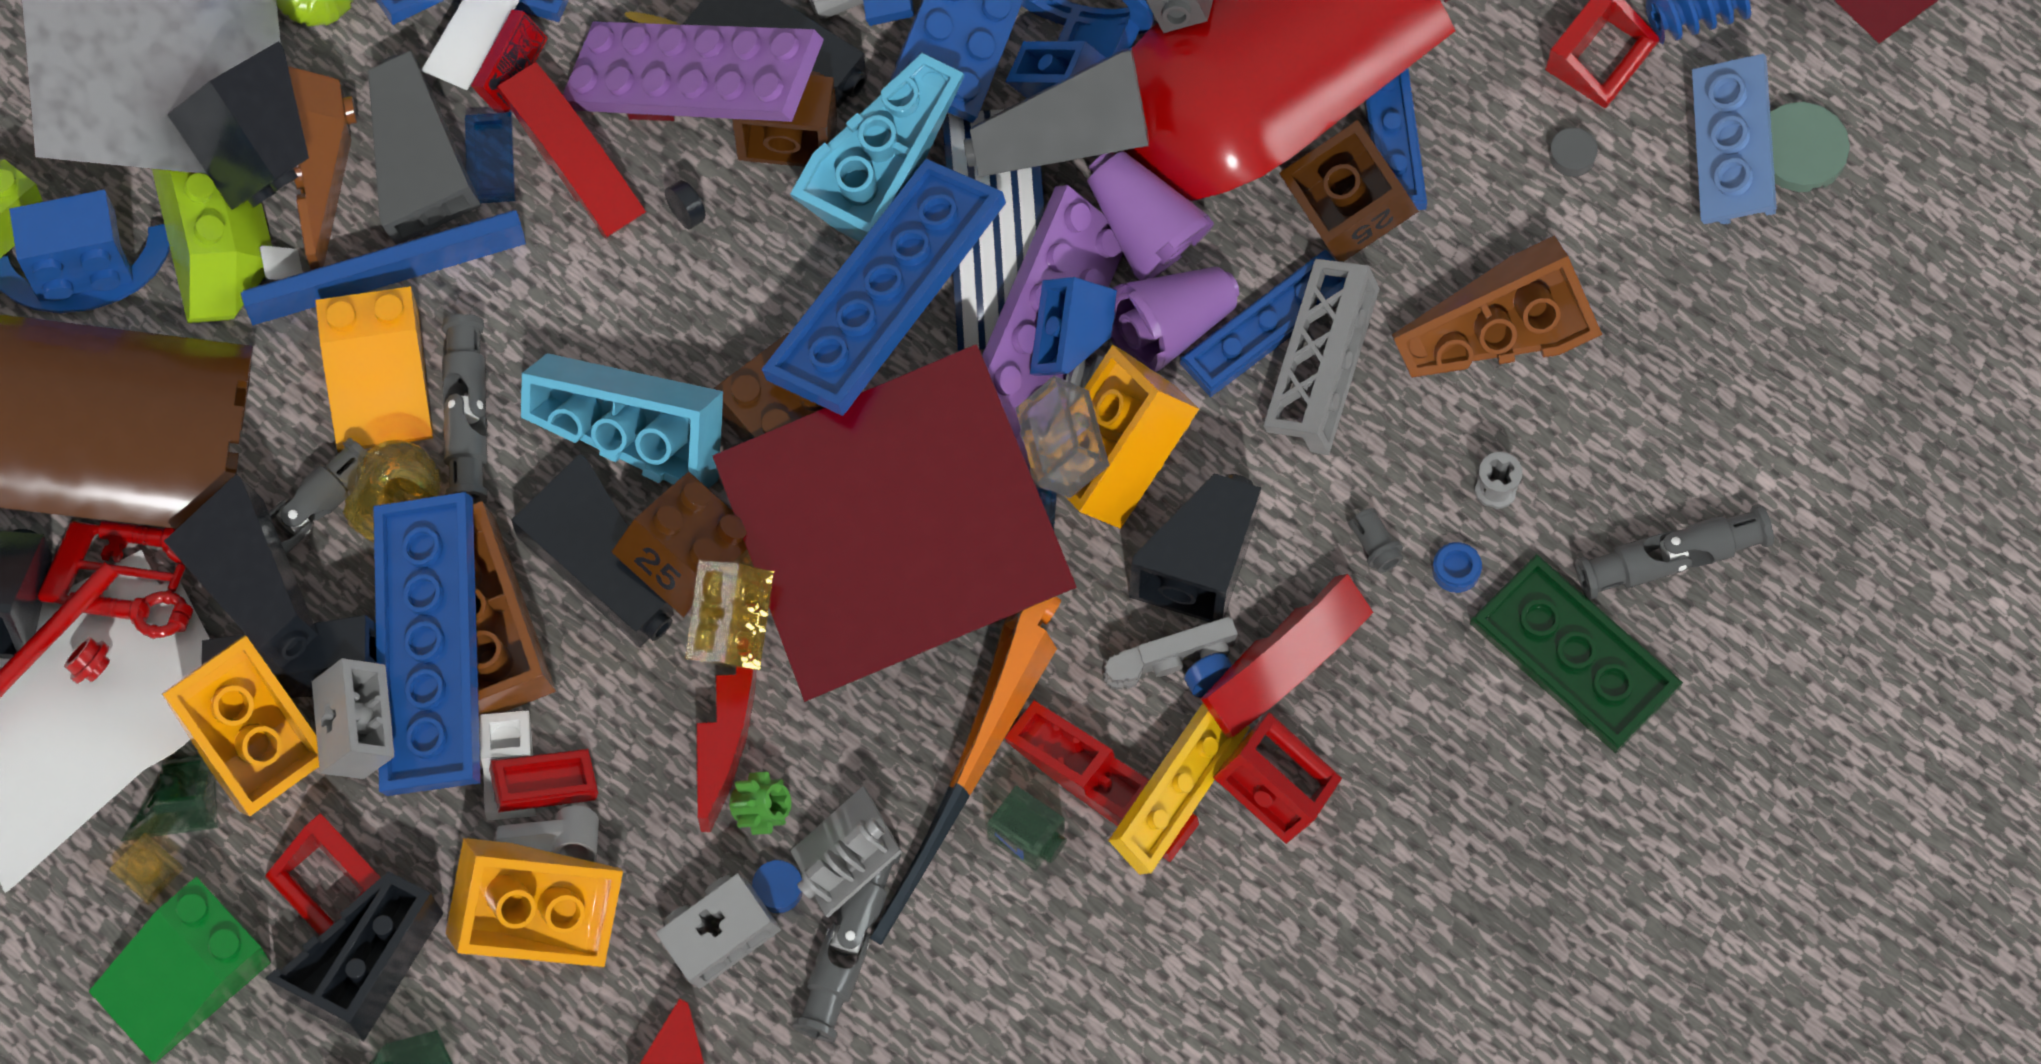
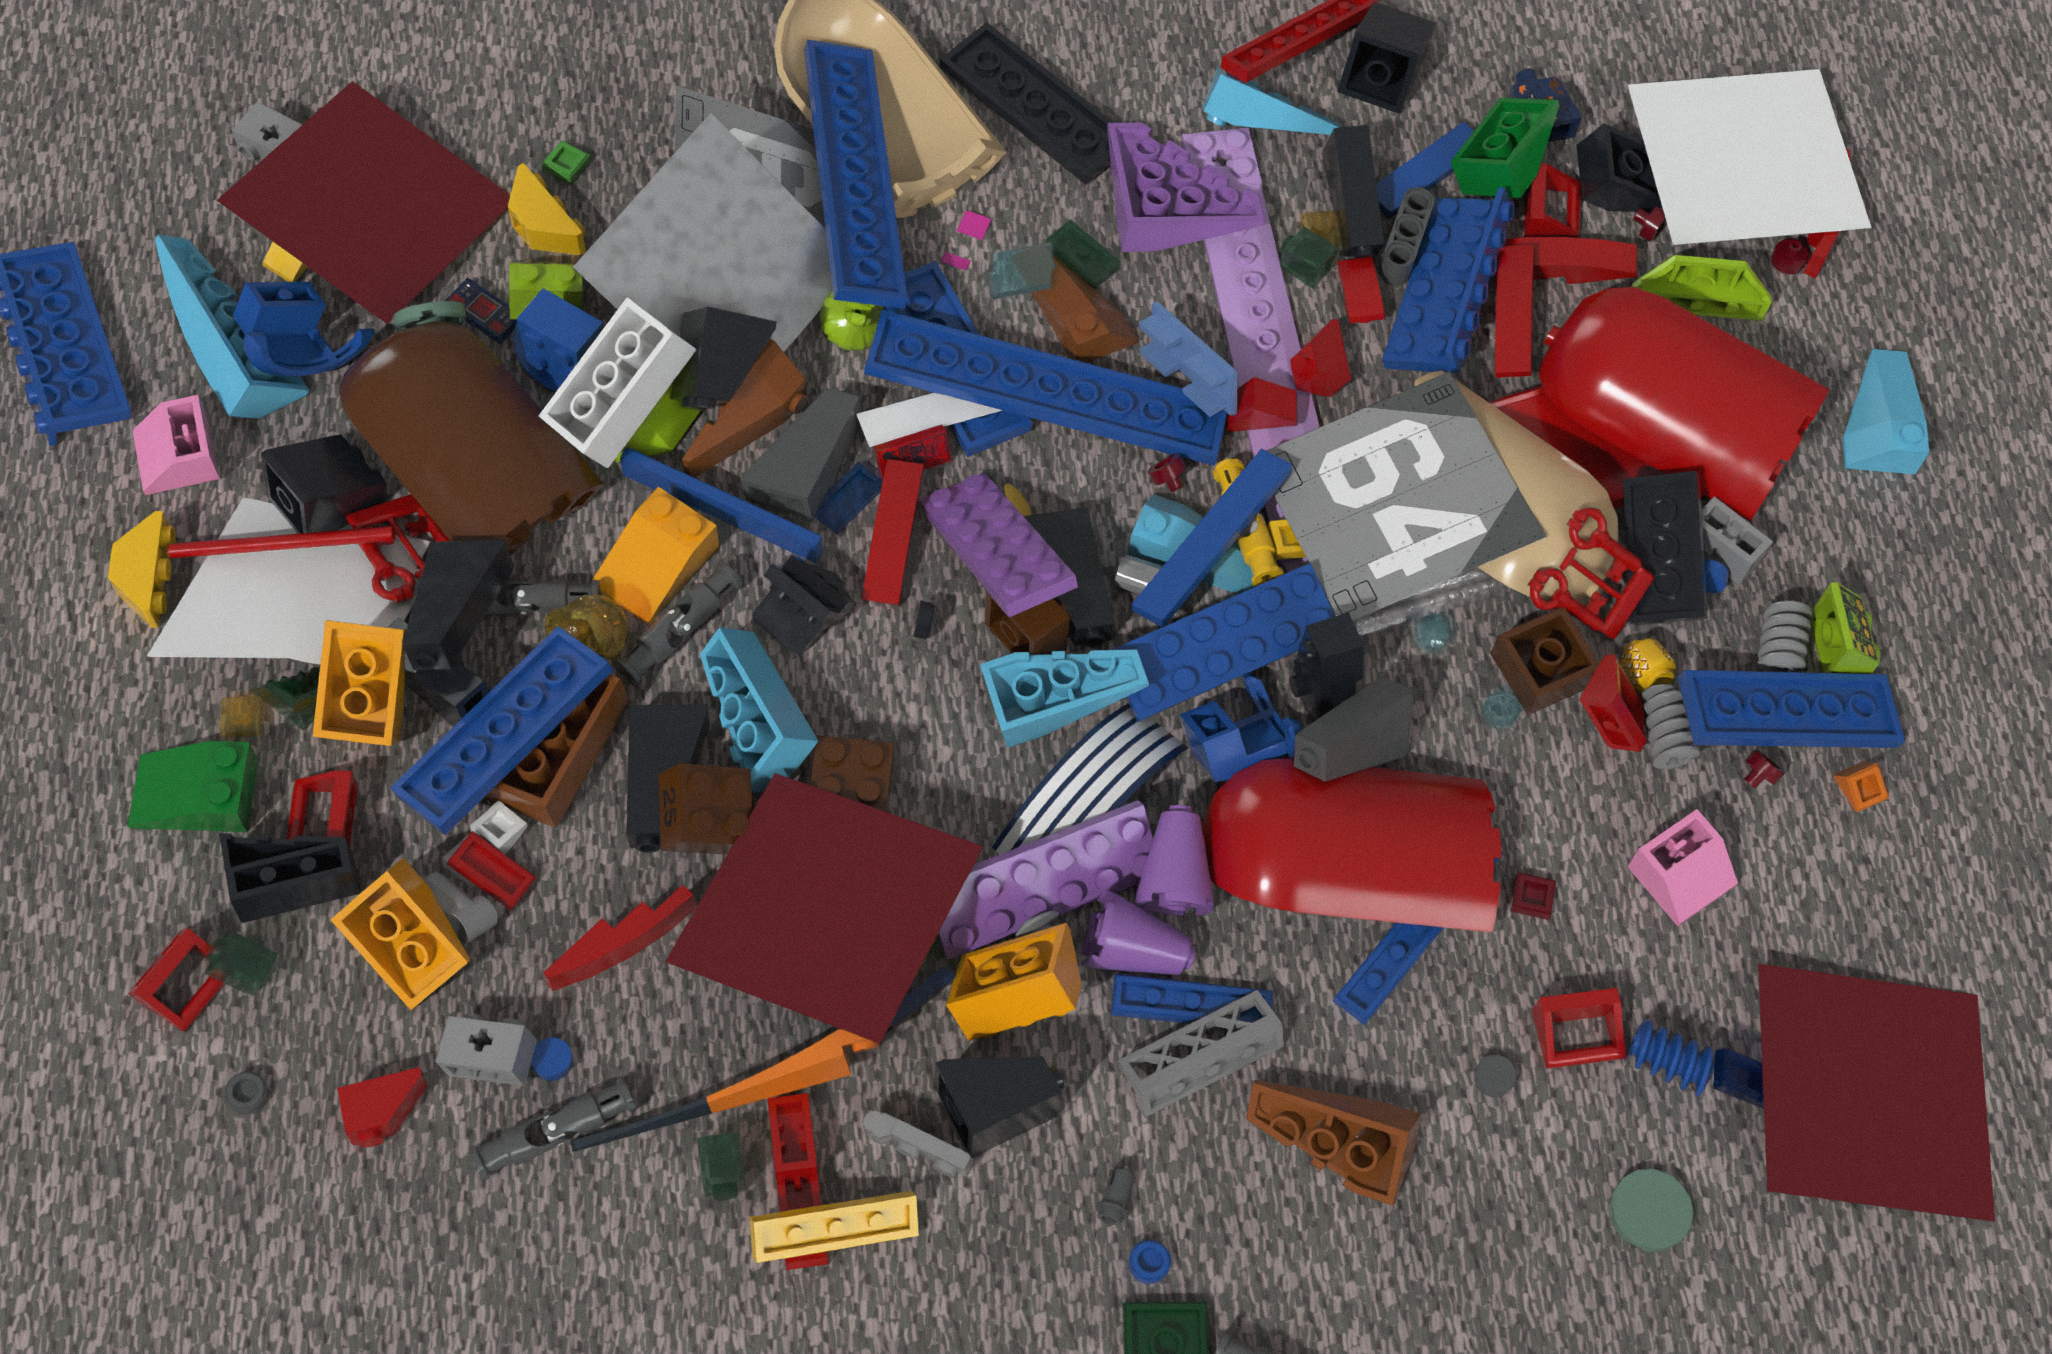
camera: 40 degrees right, 5 degrees down
(87, 660) = (328, 572): red plate -> none
(184, 232) = (617, 383): none -> white brick
(280, 262) = (670, 452): white sticker -> none
(352, 719) = (417, 733): light grey brick -> none
(562, 290) = (802, 603): none -> black piece
(729, 615) = (675, 870): clear yellow brick -> none
(760, 803) = (590, 1000): bright green gear -> none
(844, 852) = (599, 1074): light grey hinge -> none
(884, 286) = (970, 764): blue plate -> none
(1061, 437) = (980, 950): clear brick -> none
(1070, 120) = (1184, 768): dark grey slope -> none
(1071, 324) = (1058, 889): blue slope -> none
(1206, 673) = (927, 1179): blue tile -> none
(1268, 791) = (882, 1288): red tile -> none
(1287, 656) = (982, 1213): red slope -> none
(1348, 192) = (1317, 968): reddish brown brick -> none
(1496, 493) = (1217, 1234): light grey bush -> none
(1734, 139) = (1603, 1163): medium blue brick -> none

